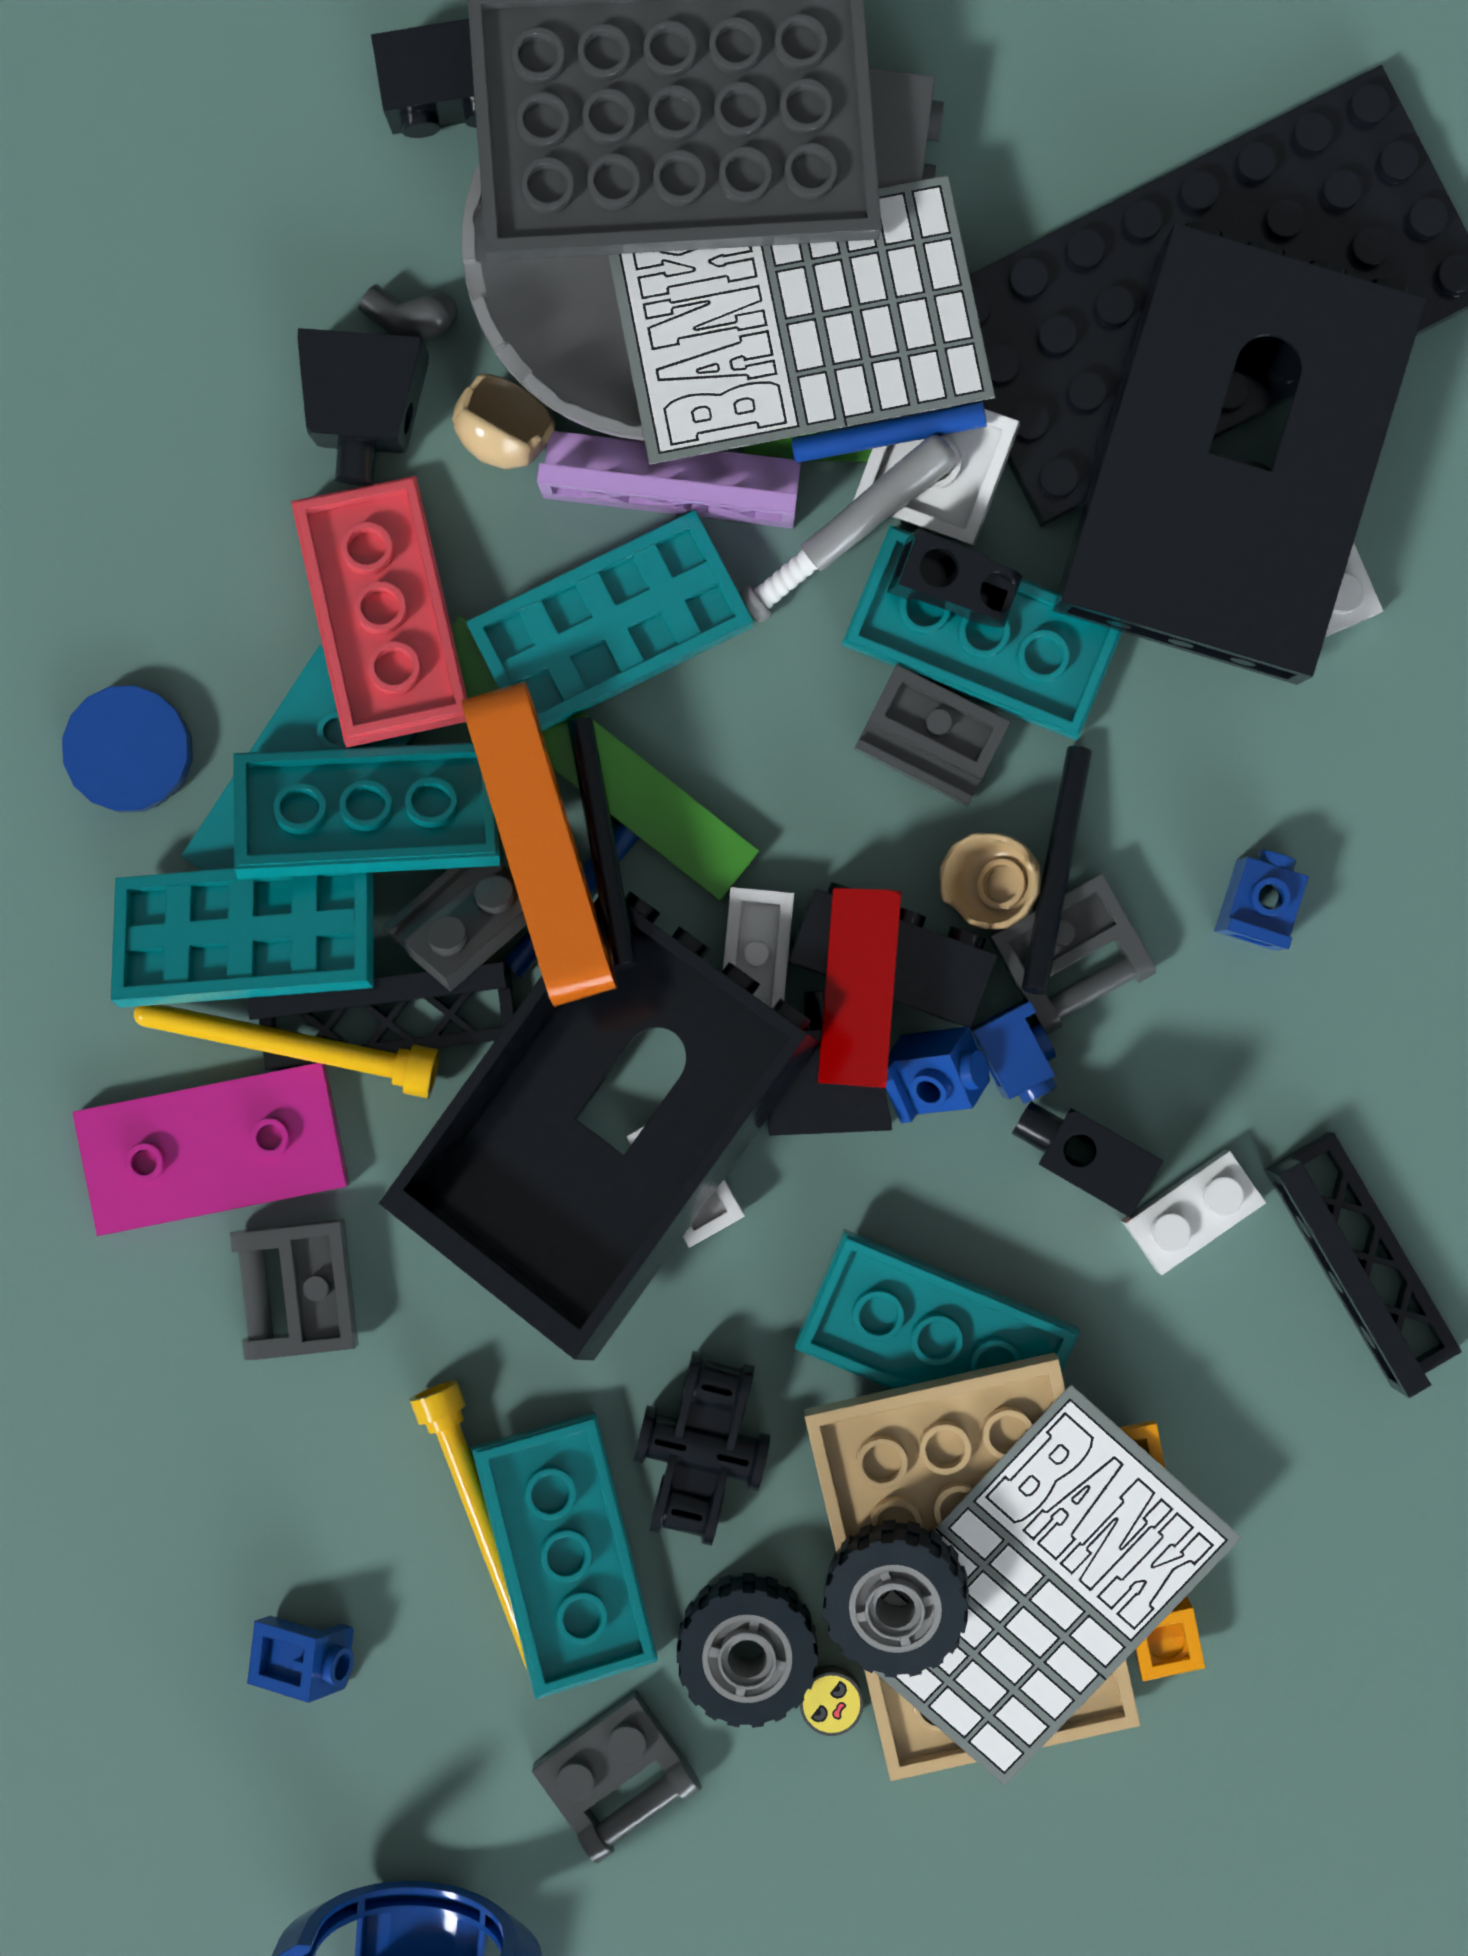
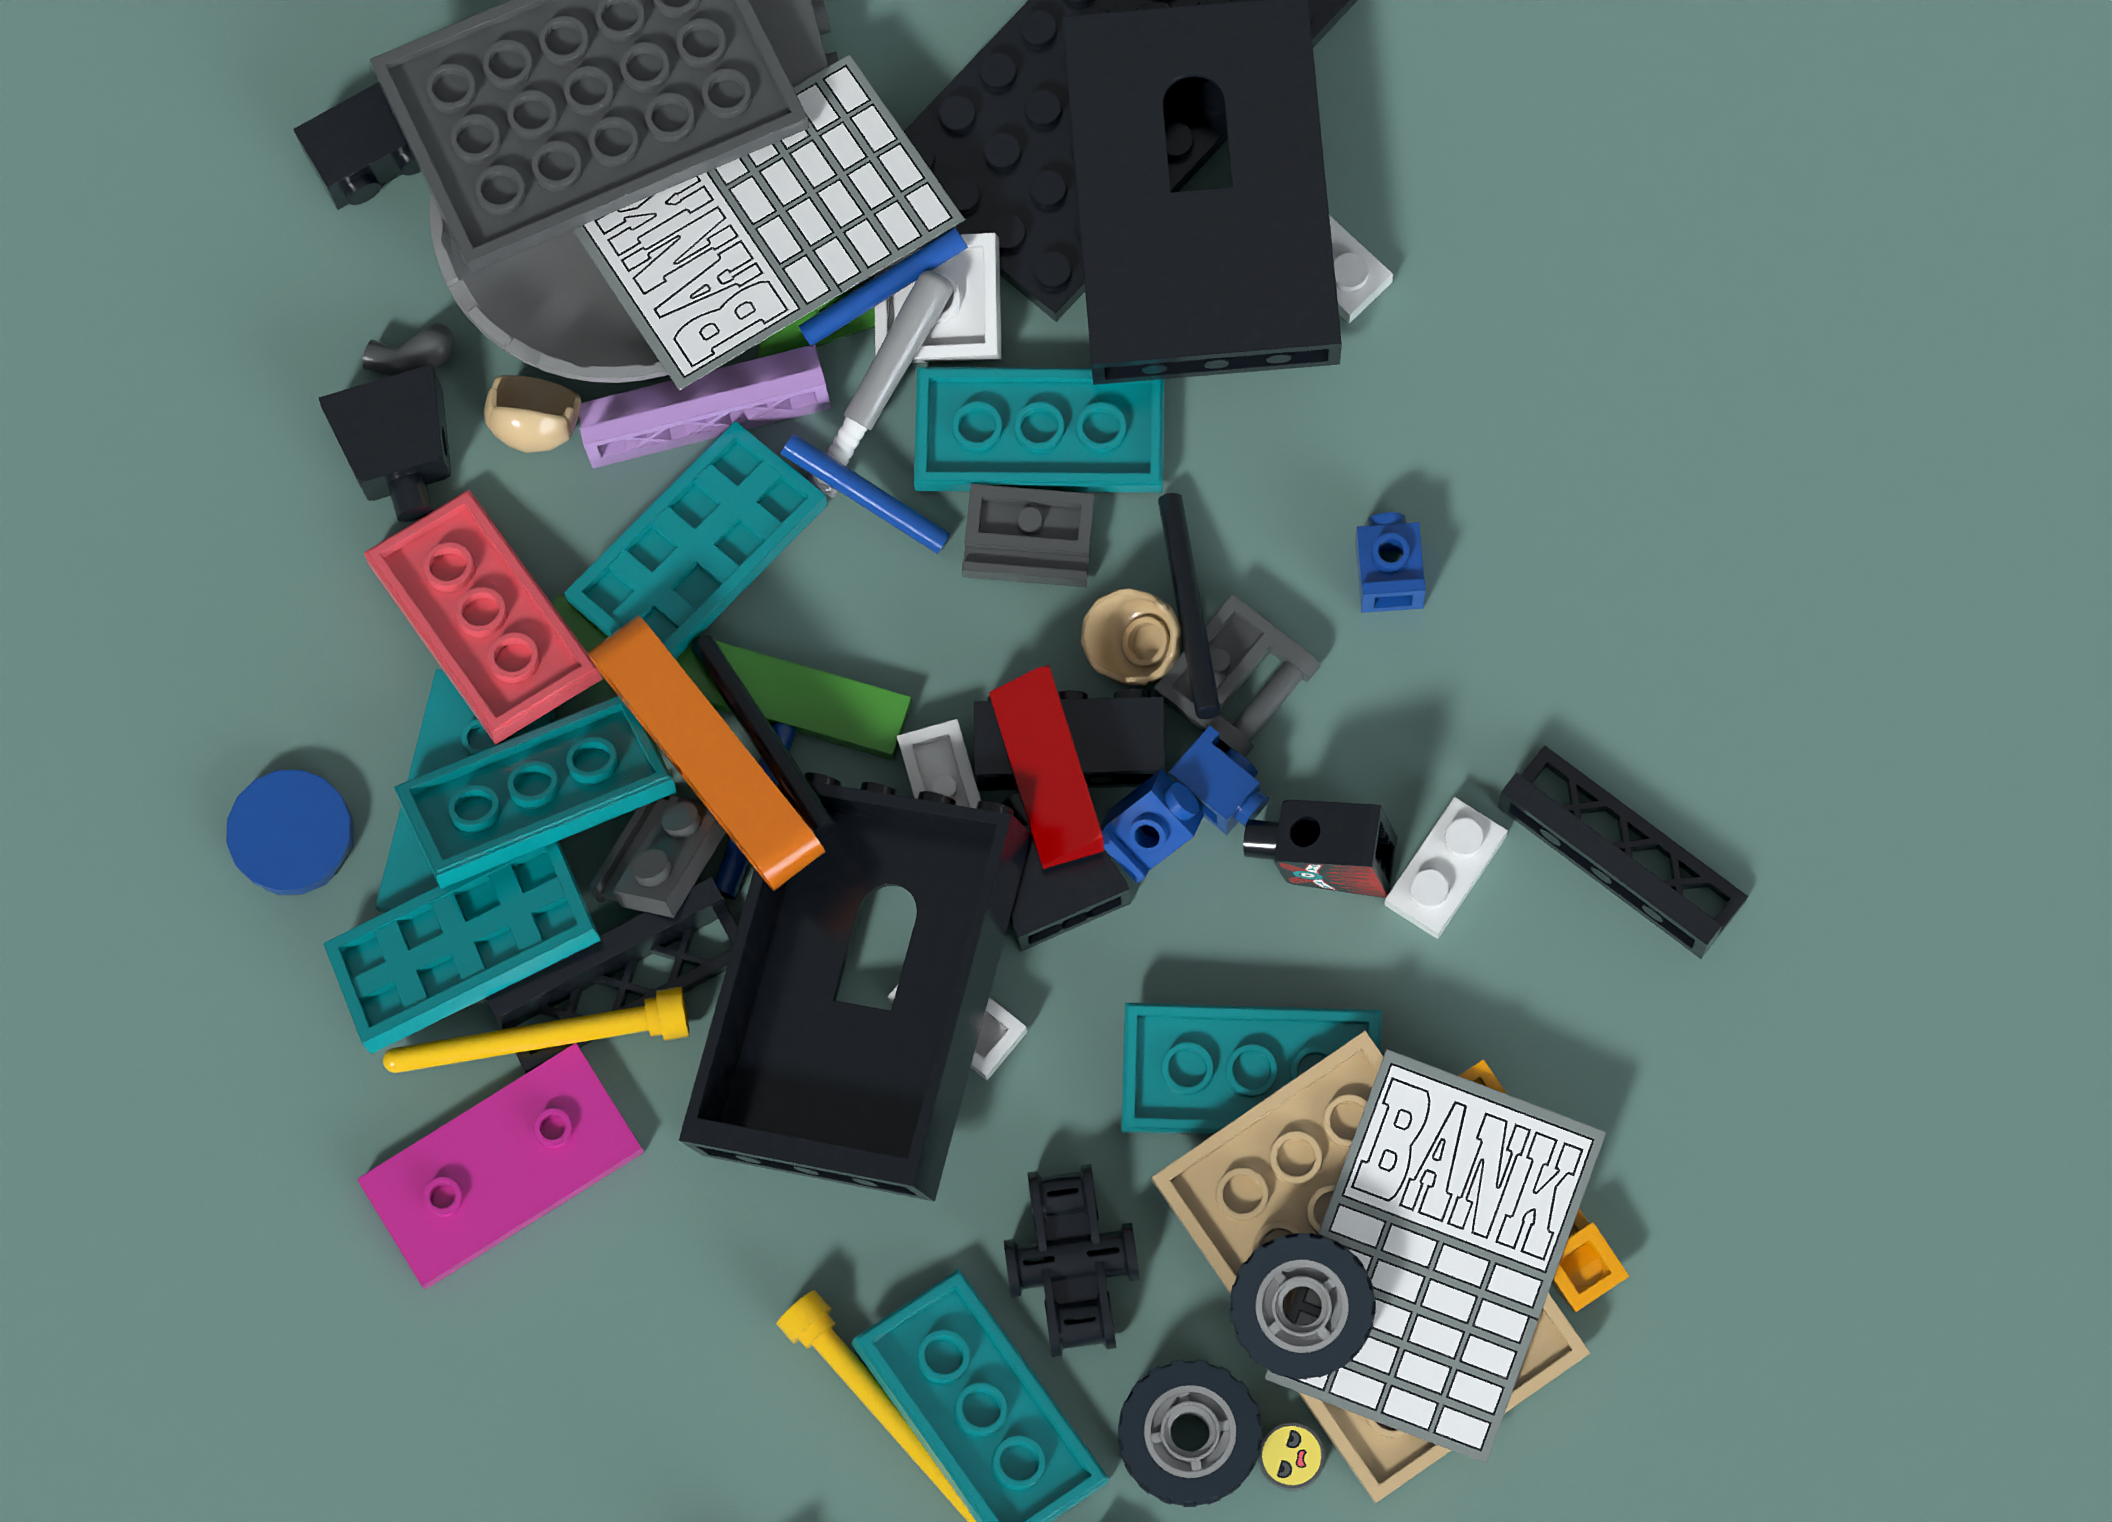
camera: 15 degrees left, 15 degrees down
(314, 1287) = (646, 1253): dark grey plate -> none
(791, 632) = (865, 493): none -> blue bar
(955, 579) = (992, 386): black leg -> none

